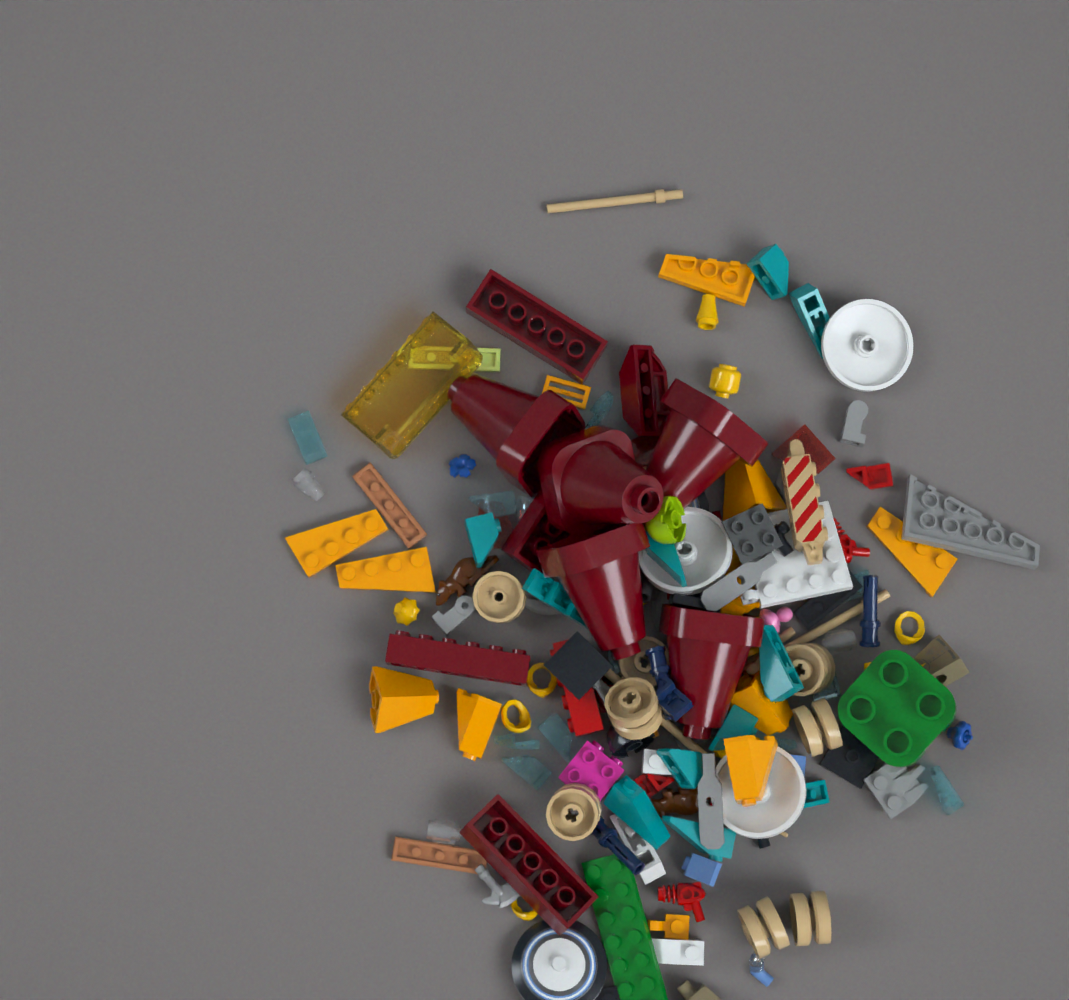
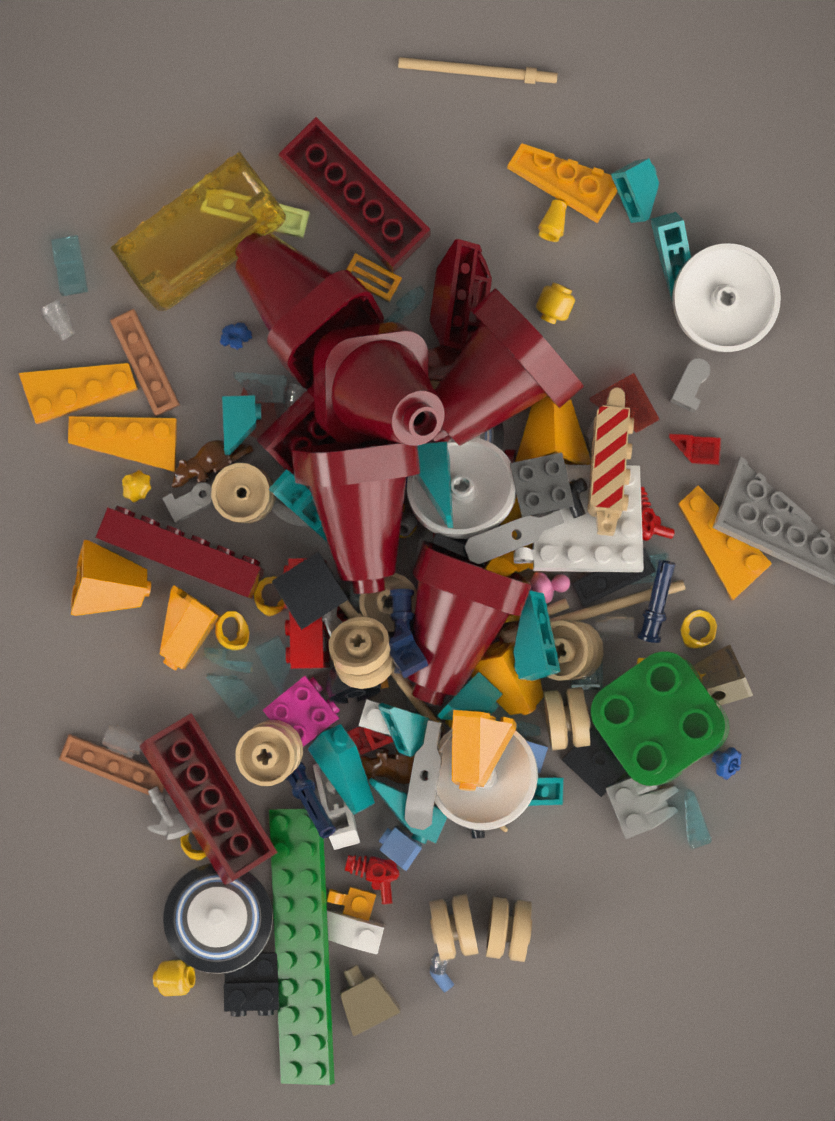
camera: 20 degrees right, 5 degrees up
(667, 524) = (446, 450): lime cylinder -> none

